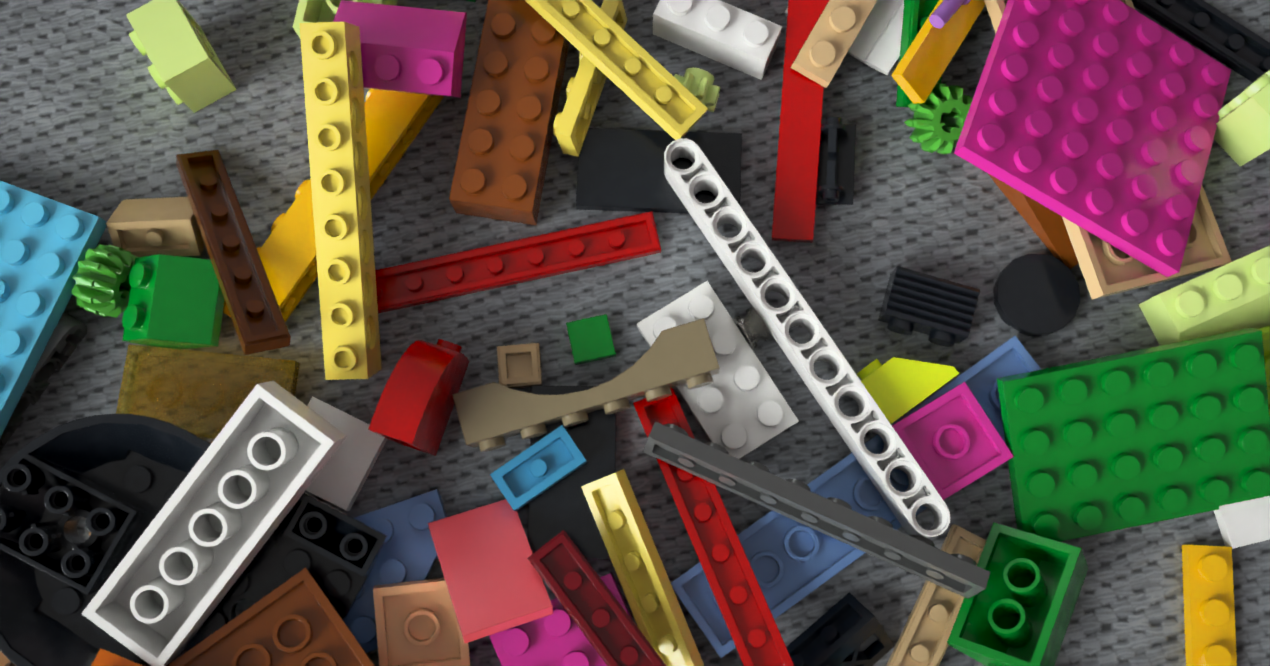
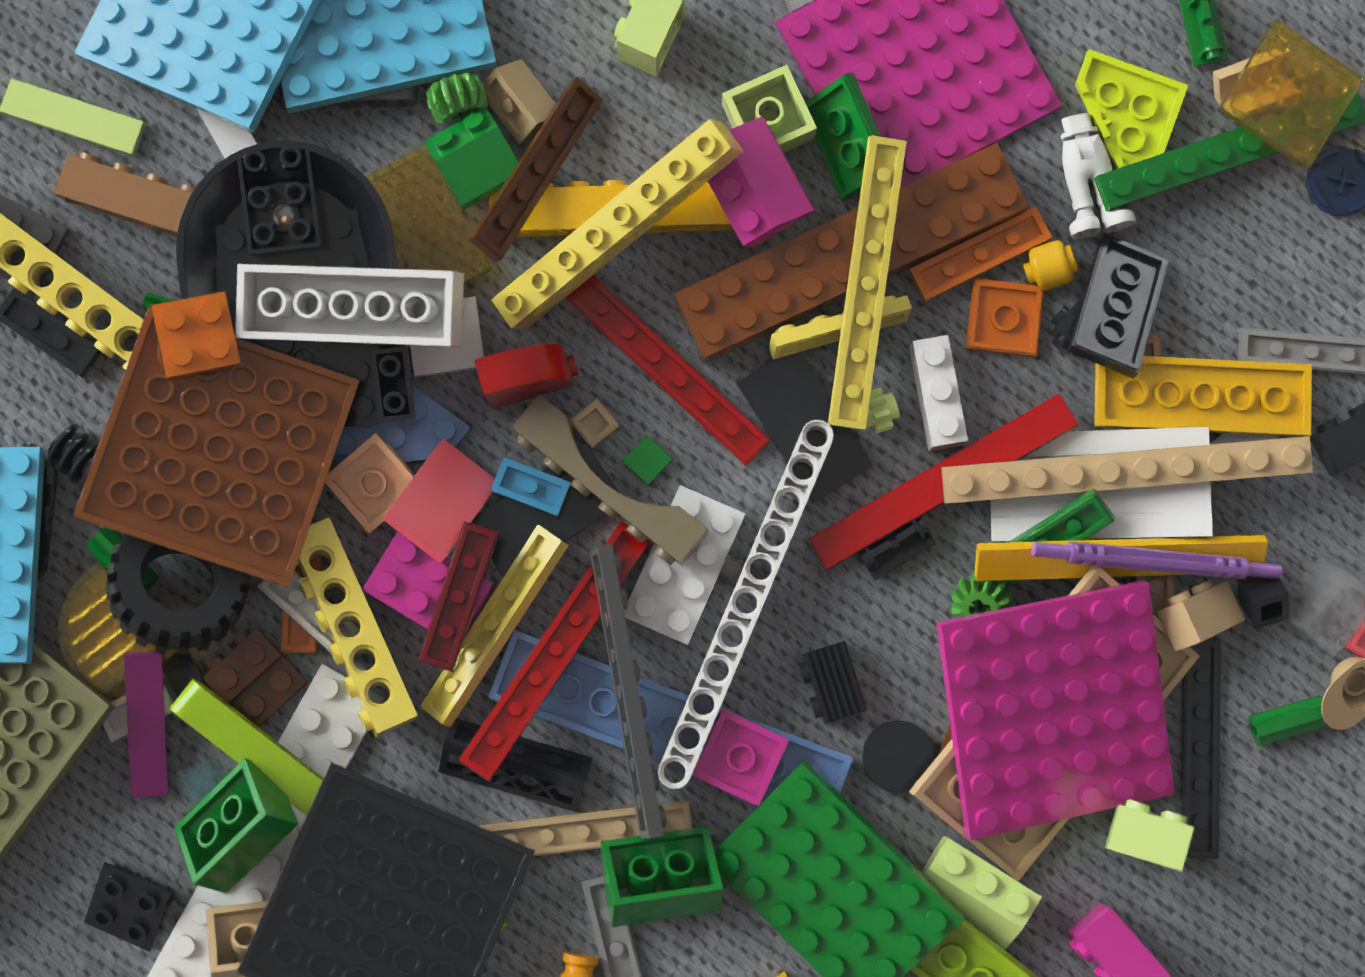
camera: 55 degrees right, 5 degrees up
(903, 383) = (760, 698): neon yellow slope -> none

